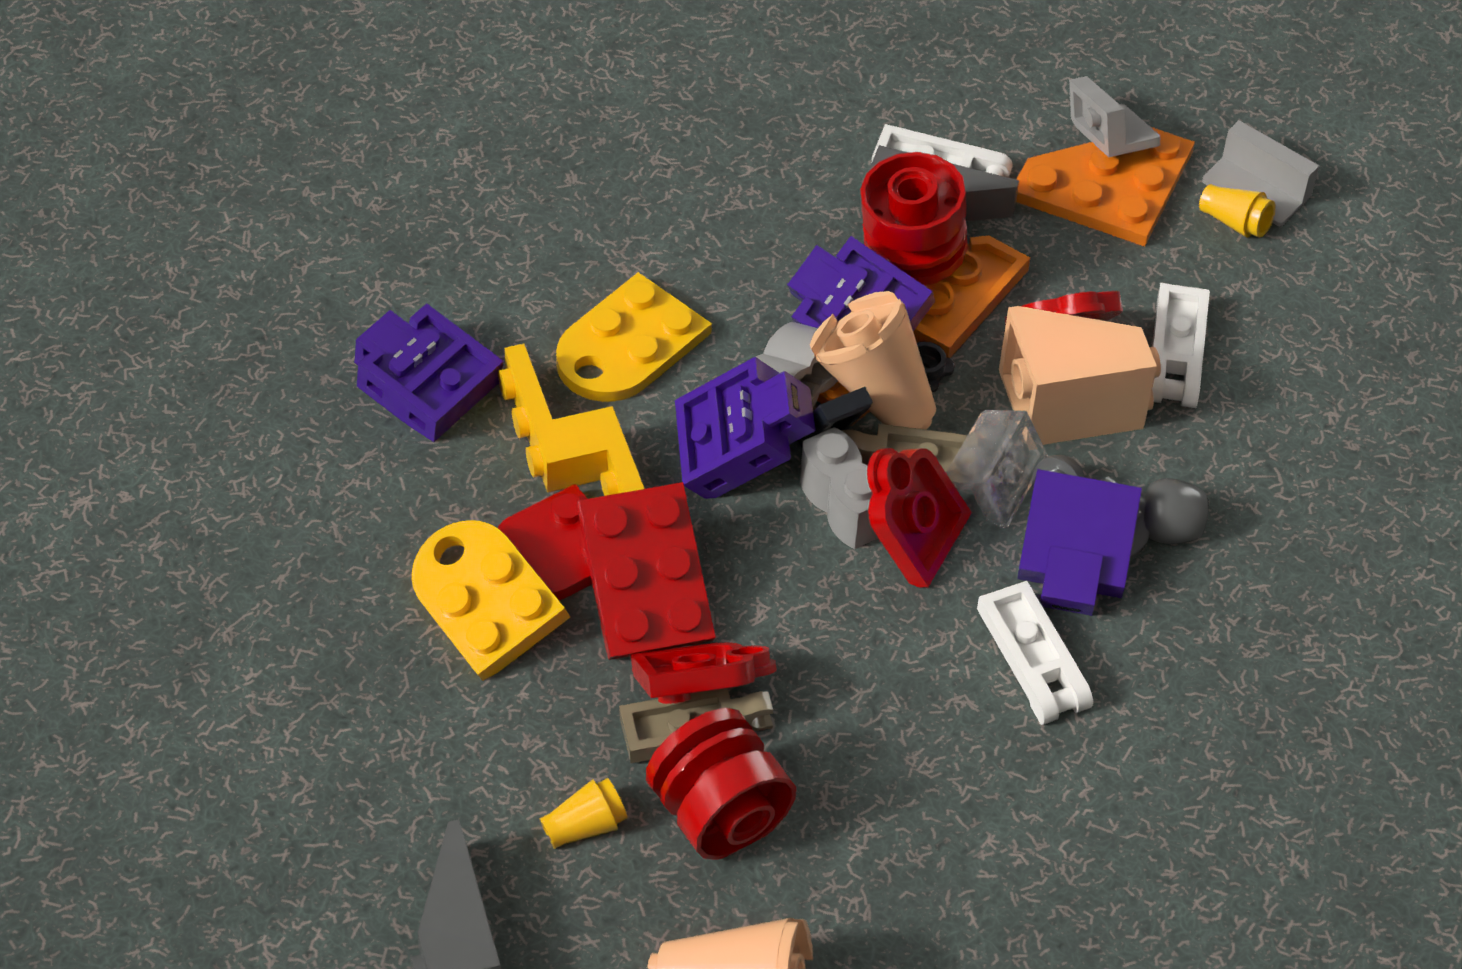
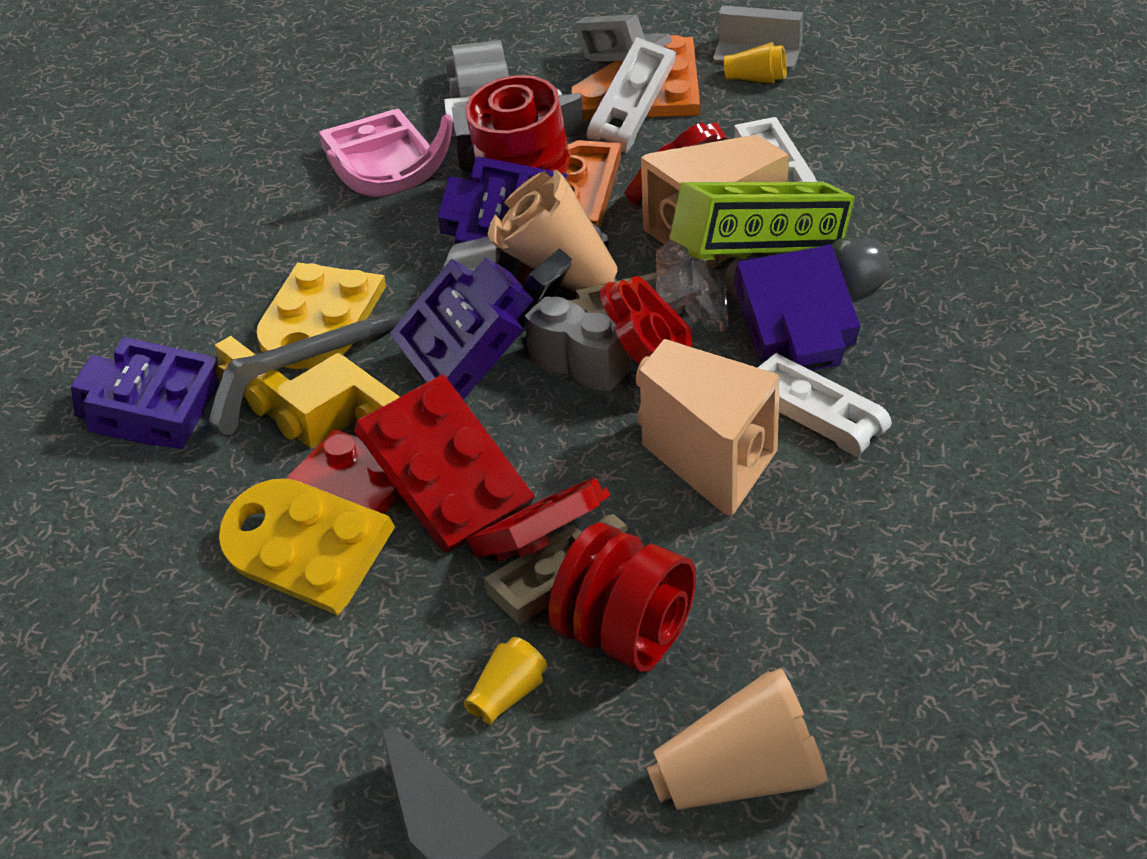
camera: 20 degrees left, 10 degrees down
(511, 395) = (243, 370): none -> dark grey piece
(787, 168) = (384, 153): none -> bright pink piece
(909, 635) = (709, 420): none -> light nougat slope
(940, 99) = (474, 66): none -> light grey brick
(1074, 201) = (632, 93): none -> white plate
(1095, 425) = (758, 217): none -> lime brick

